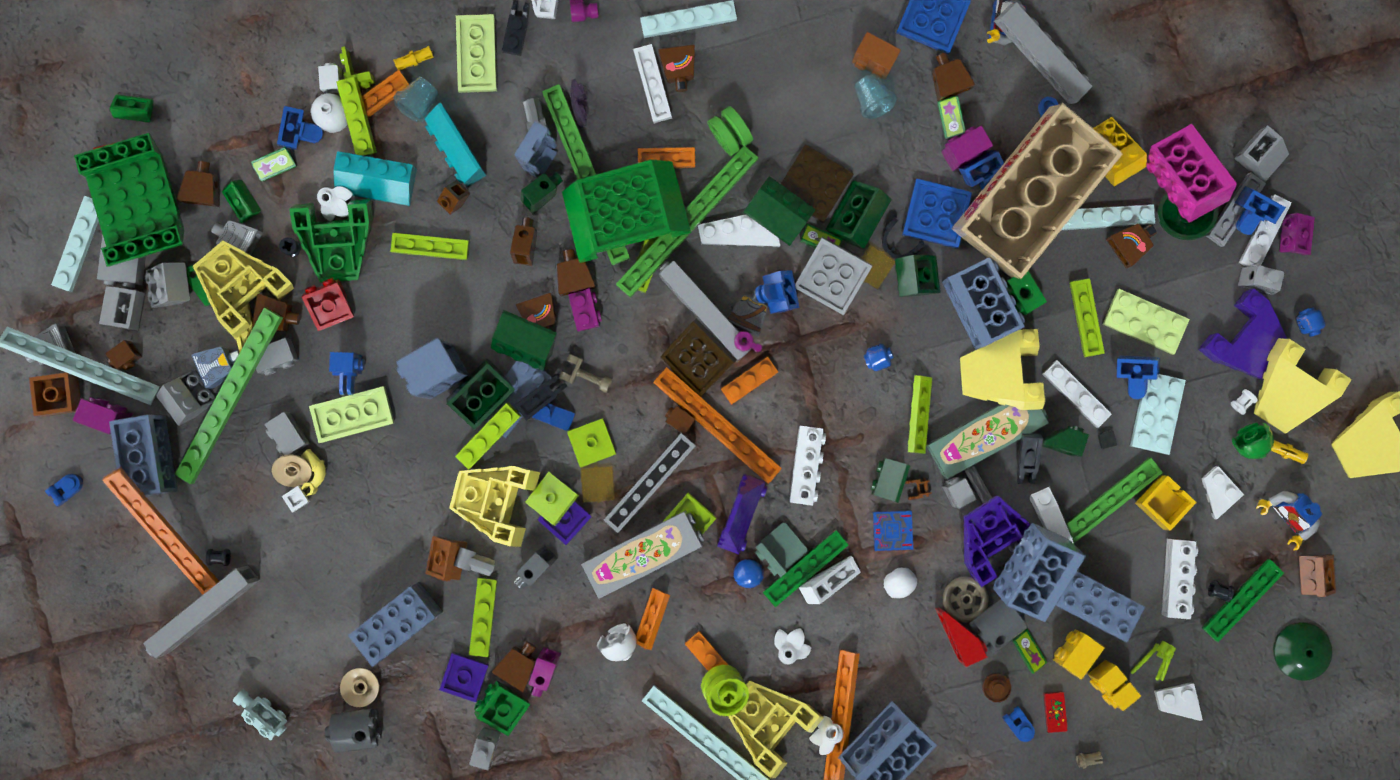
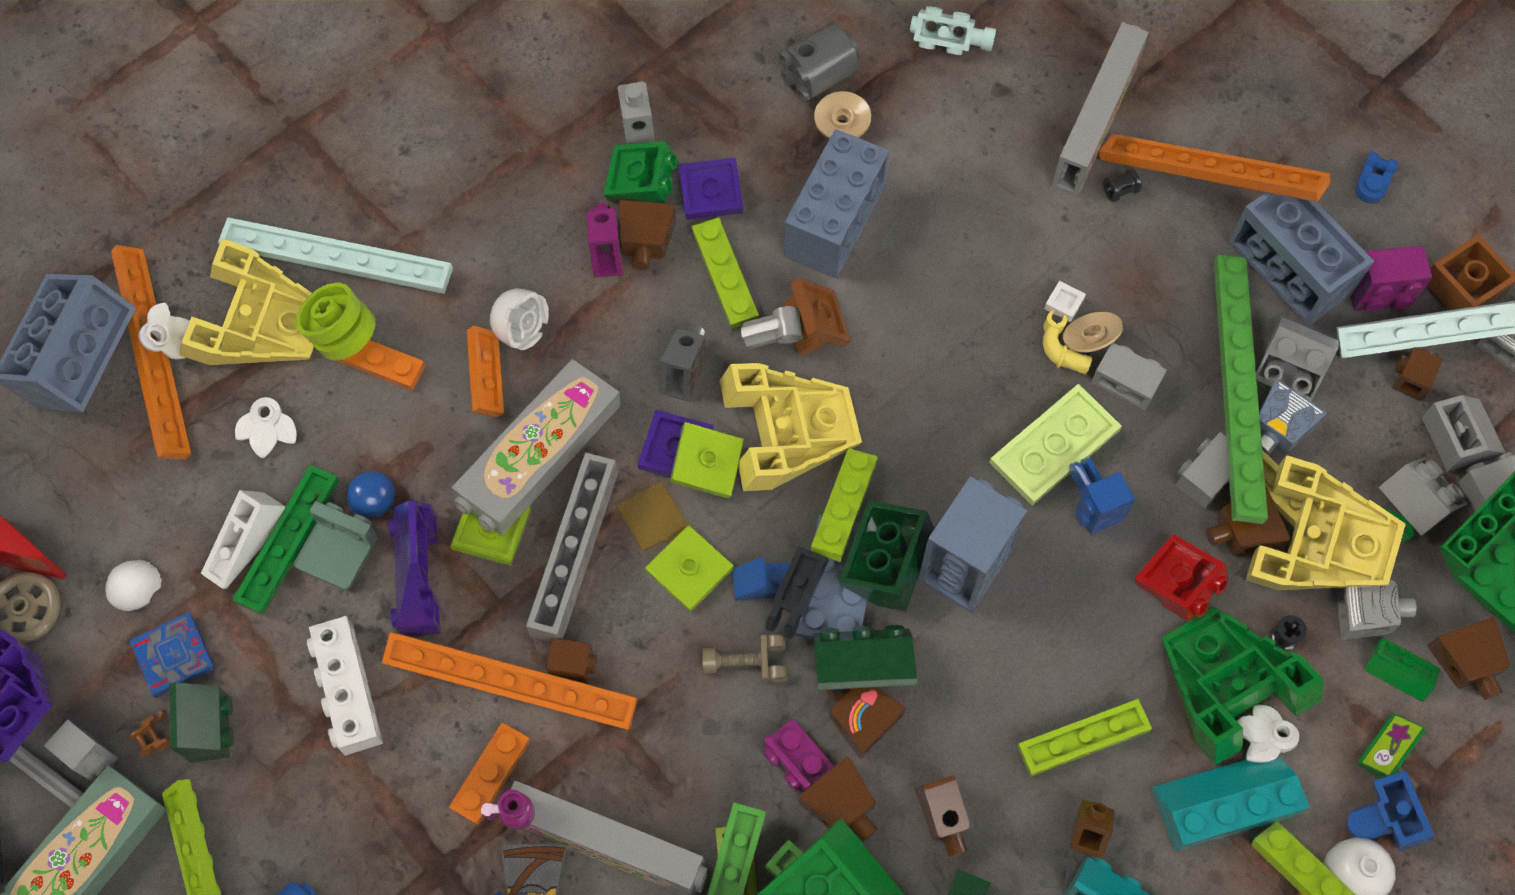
camera: 155 degrees right, 20 degrees down
(698, 358) = (582, 762): dark brown plate -> none

